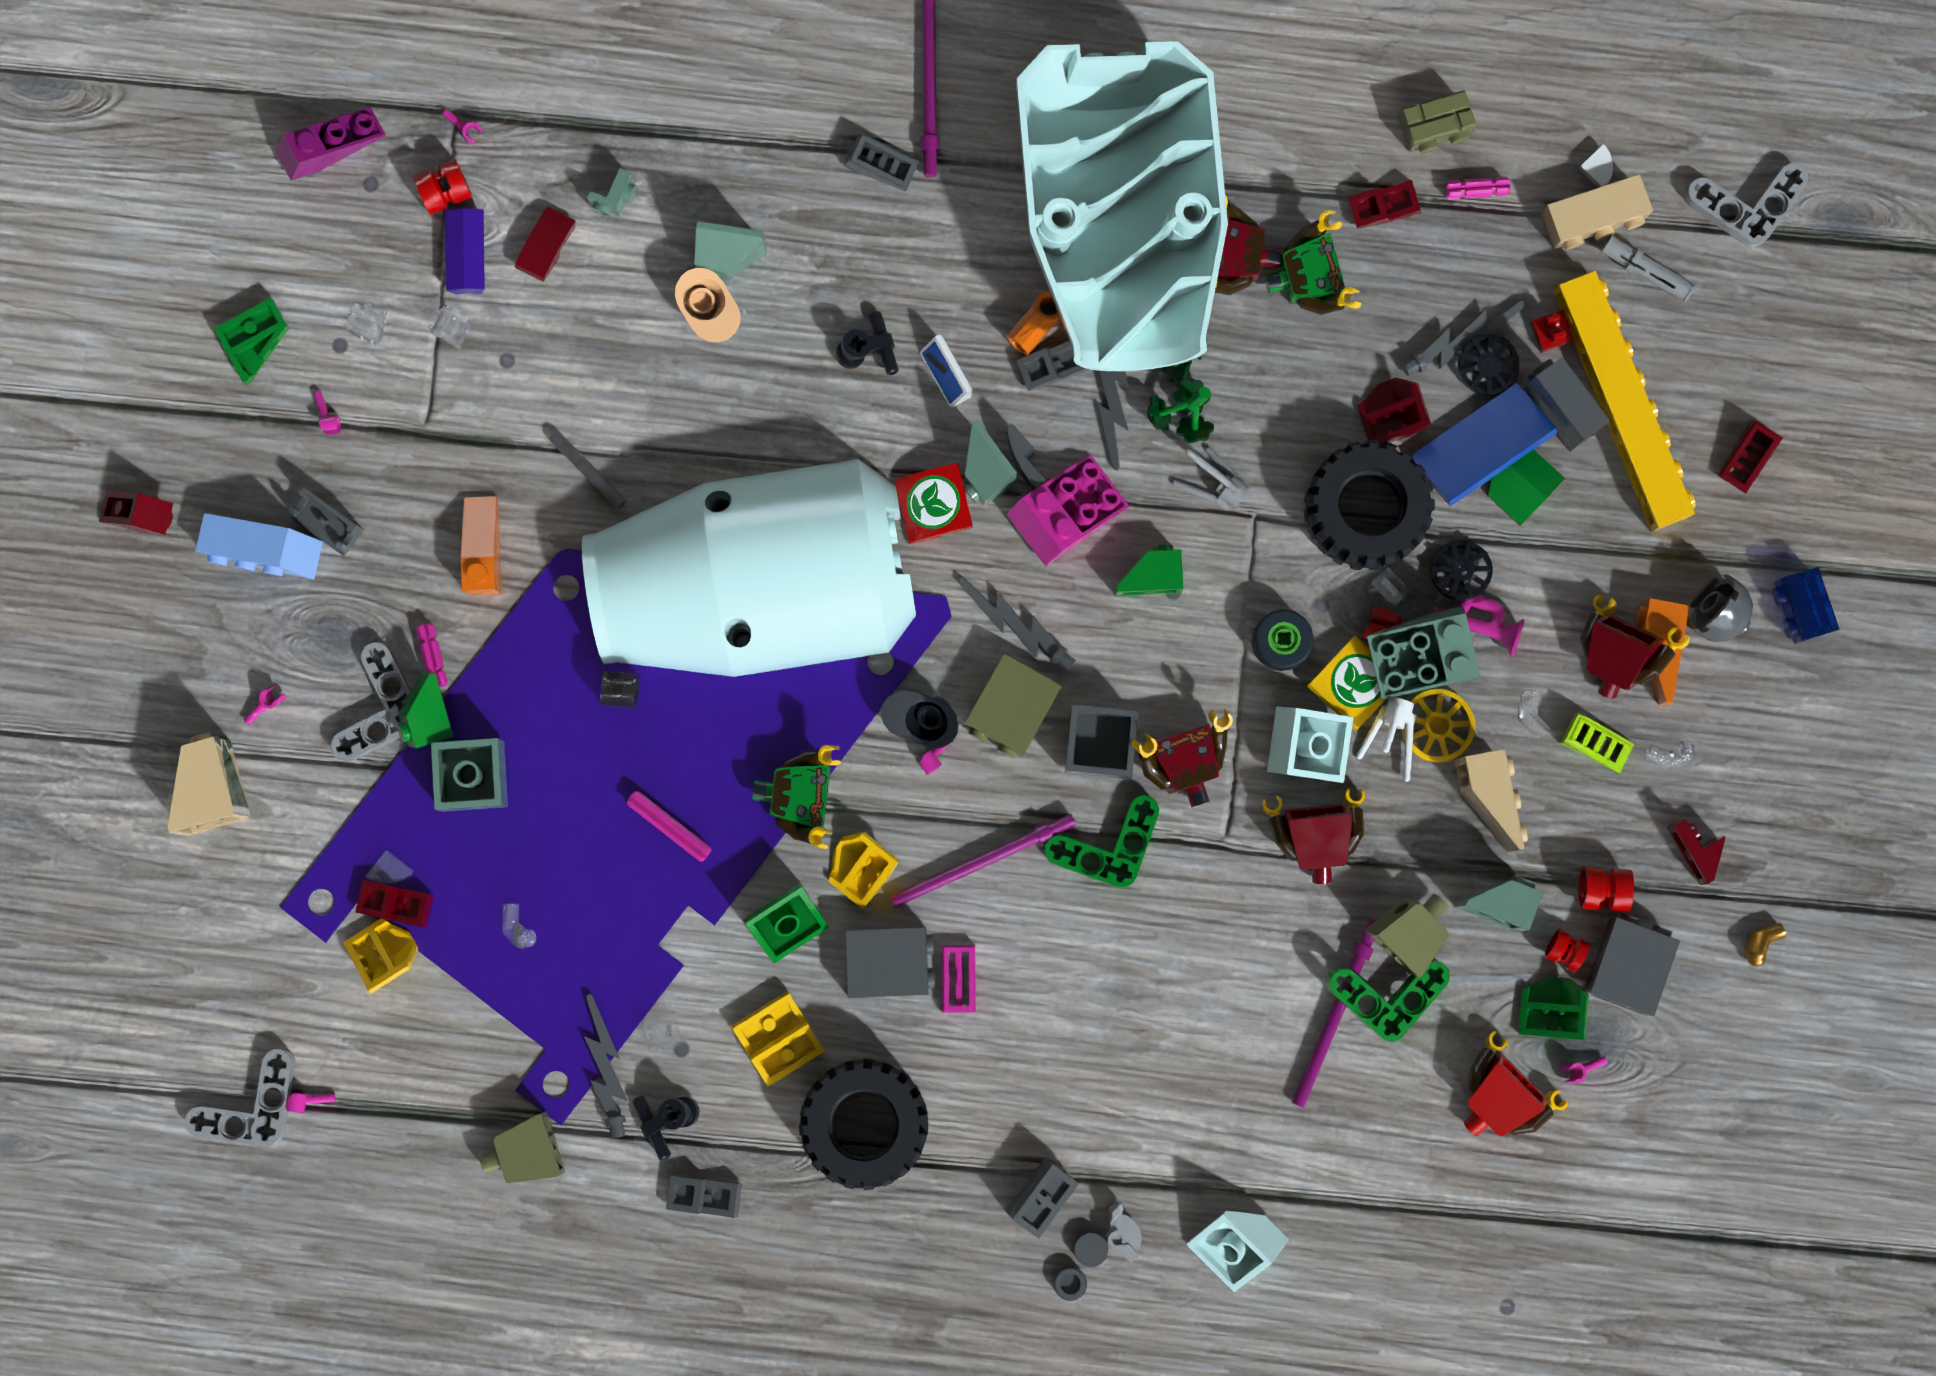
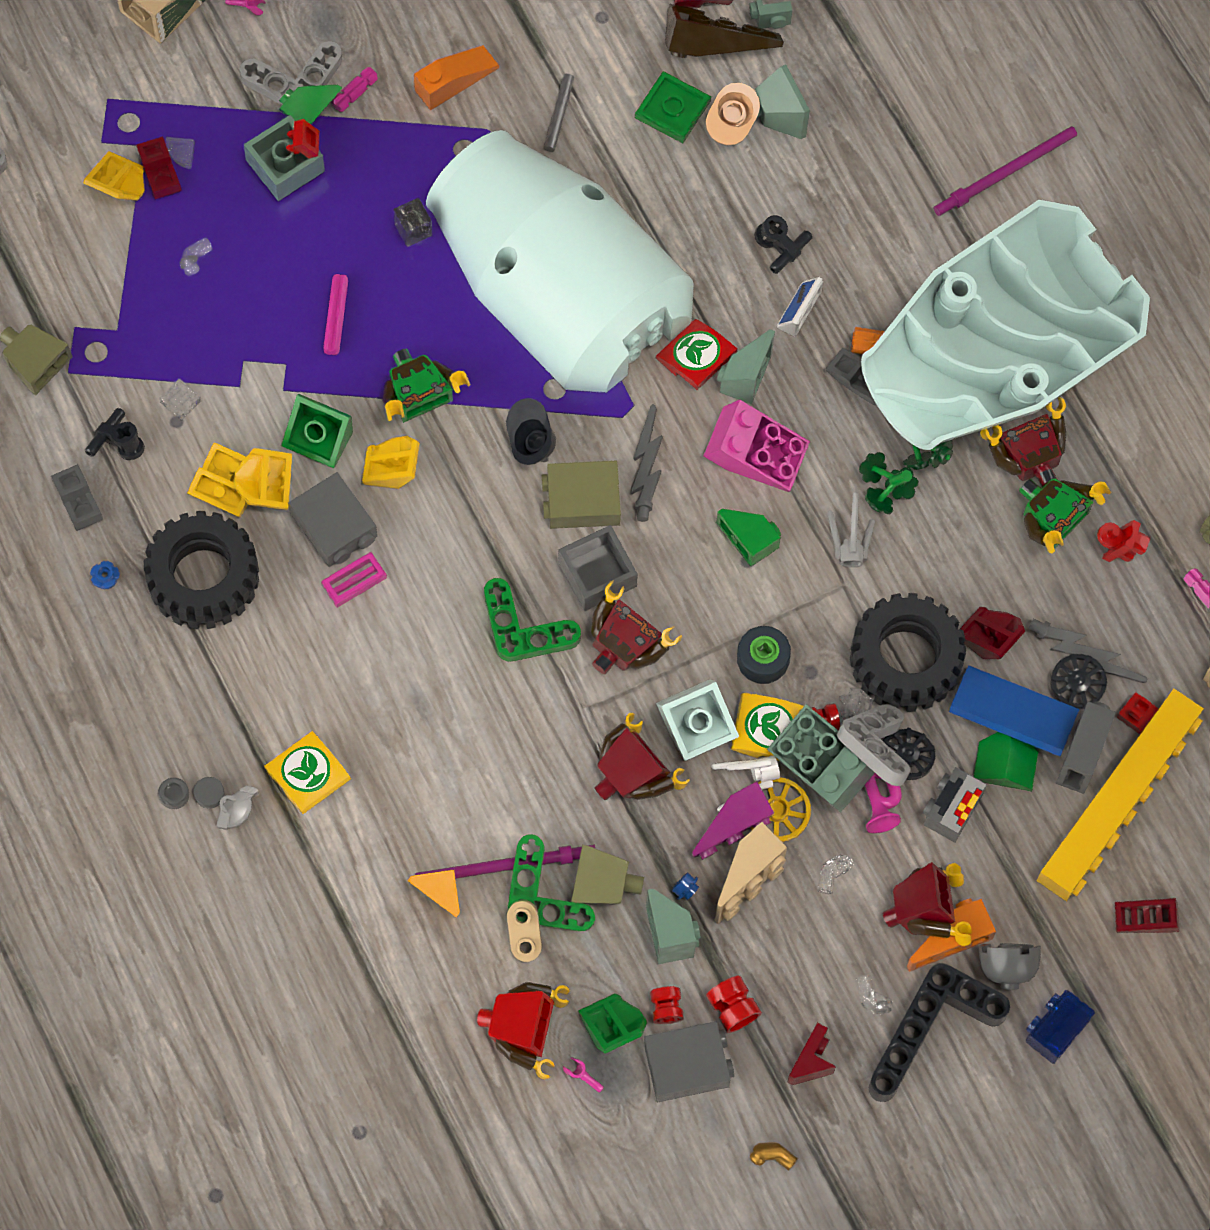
camera: 55 degrees right, 15 degrees down
(472, 746) = (304, 138): none -> red tile
(597, 275) = (697, 35): none -> dark brown wedge
(613, 1086) = (95, 403): dark grey piece -> none
(653, 355) = (672, 107): none -> green tile
(806, 1004) = (265, 478): none -> yellow slope
(813, 1217) = (108, 581): none -> blue plate
(877, 173) = (928, 152): dark grey slope -> none
(930, 762) = (505, 461): dark pink hand -> none
(1020, 451) = (775, 389): dark grey slope -> none
(1042, 834) = (499, 571): magenta bar -> none
(1042, 1198) = (225, 730): dark grey hinge -> none
(1115, 413) = (851, 440): dark grey piece -> none
(1130, 1144) = (307, 772): none -> slope
(1238, 1246) = (280, 894): light aqua slope -> none
(1326, 1094) = (440, 888): none -> light orange slope
(1384, 205) = (1160, 544): dark red slope -> none
(1386, 231) = (1122, 541): none -> red hips
(1417, 1039) = (524, 931): none -> tan plate
(1430, 768) = (740, 812): none -> magenta slope
(1435, 602) = (864, 734): none -> light grey beam
(1462, 859) = (685, 887): none -> blue plate
(1538, 560) = (954, 805): none -> brick
(1573, 730) = (844, 907): lime slope -> none
(1729, 724) = (924, 1020): none -> black beam

